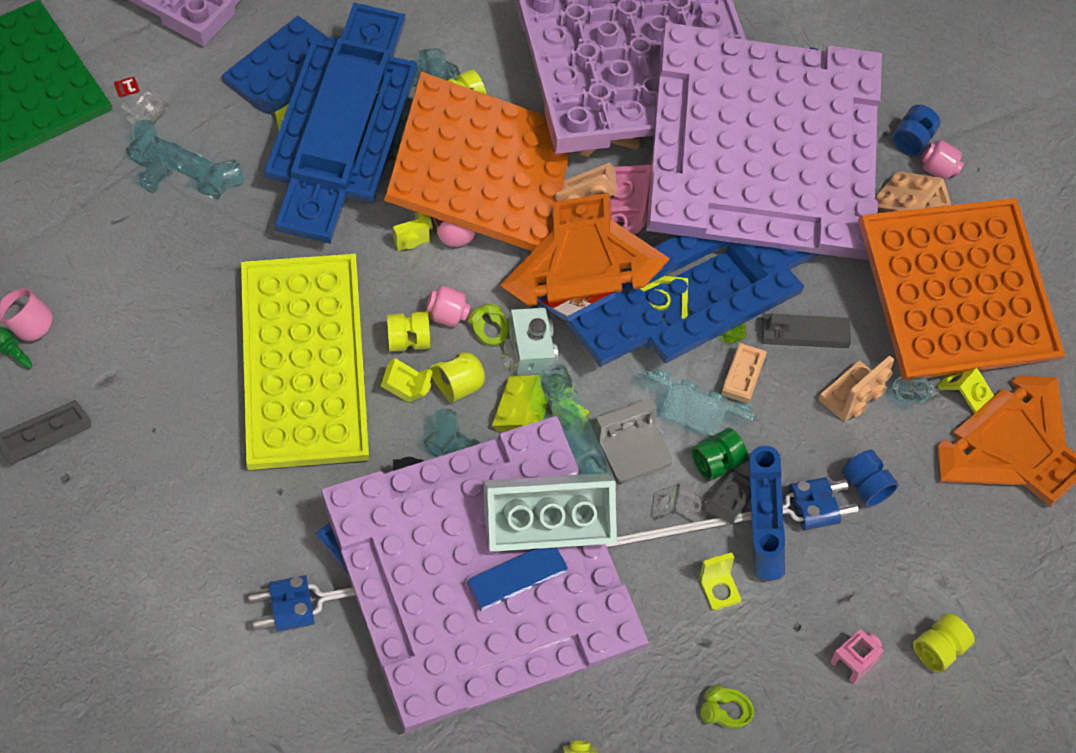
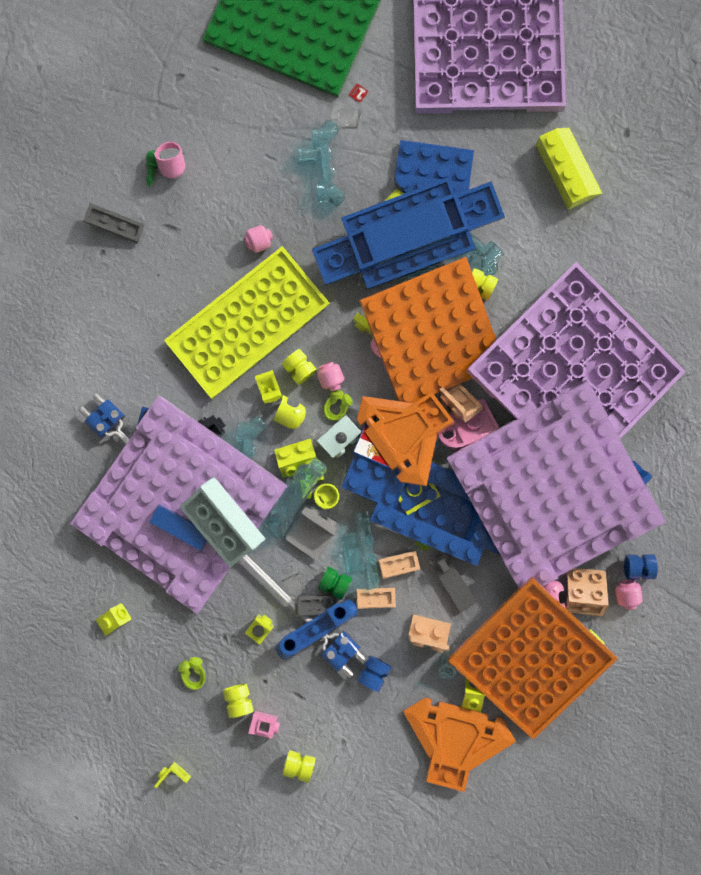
camera: 60 degrees right, 25 degrees up
(209, 282) = (258, 239): none -> bright pink head
(599, 393) = (326, 496): none -> neon yellow wheel
(770, 422) = (375, 598): none -> light nougat plate
(803, 665) = (238, 700): none -> neon yellow wheel

